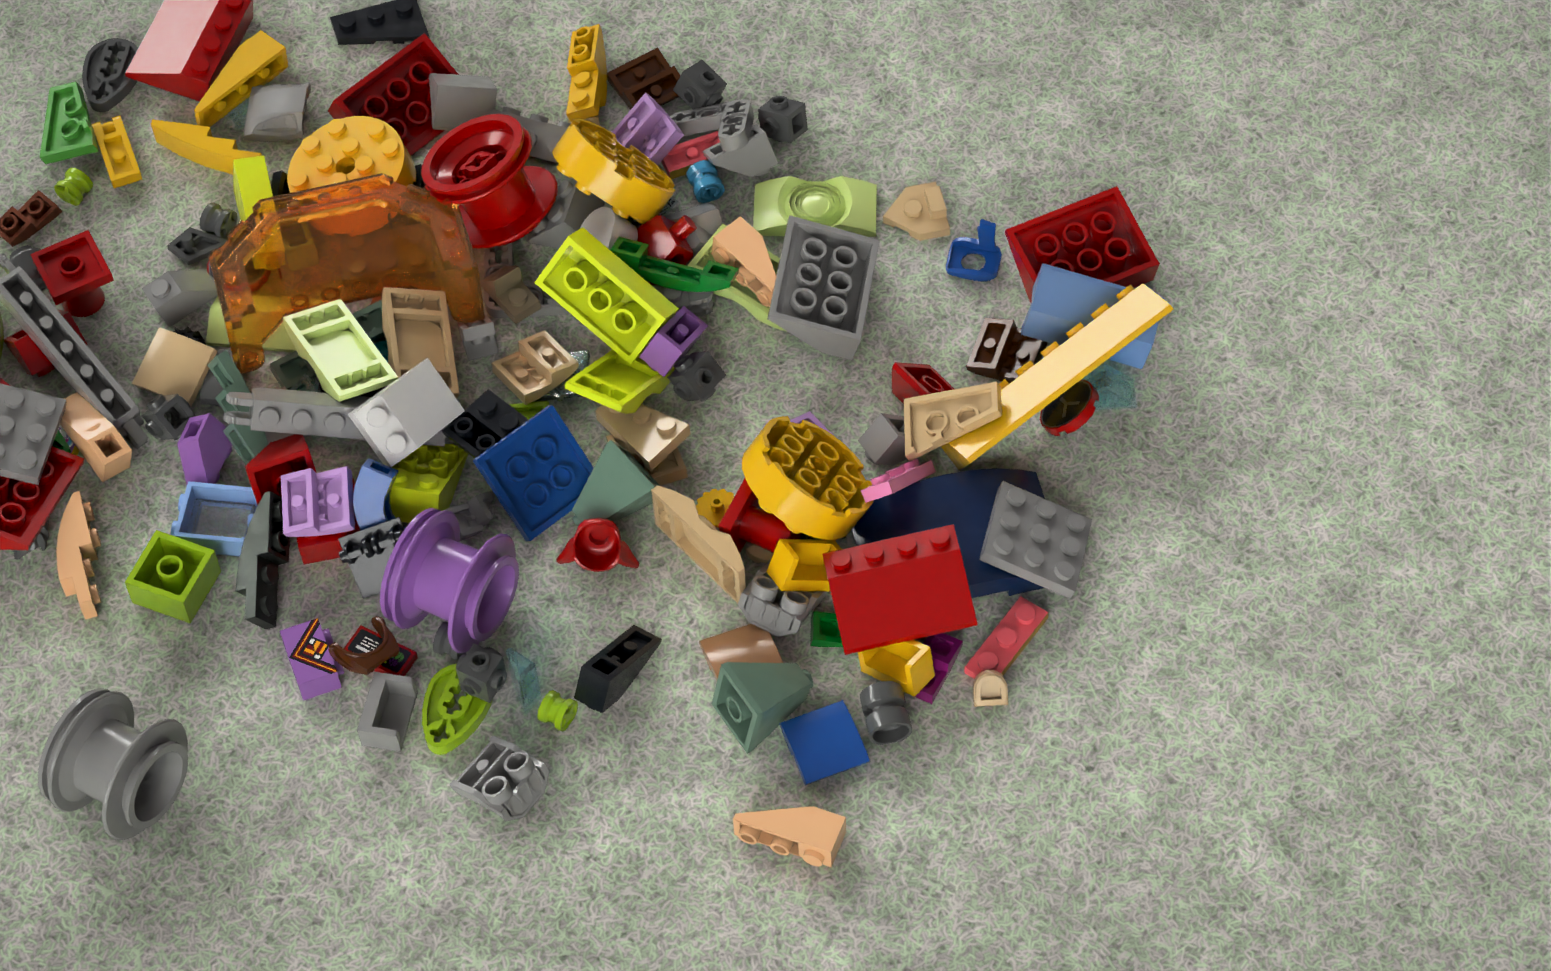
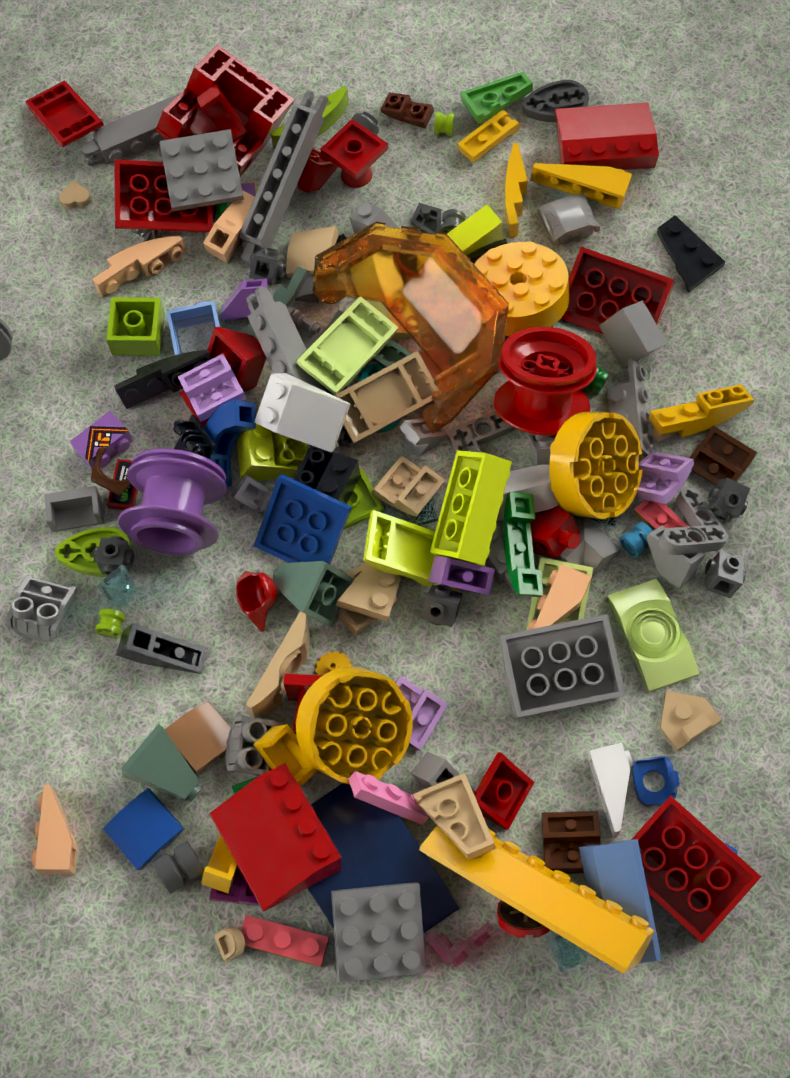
camera: 70 degrees right, 10 degrees up
(511, 293) = (468, 437): dark tan slope -> none
(963, 293) = (611, 776): none -> white slope
(1079, 493) = (441, 945): none -> clear pink bracket

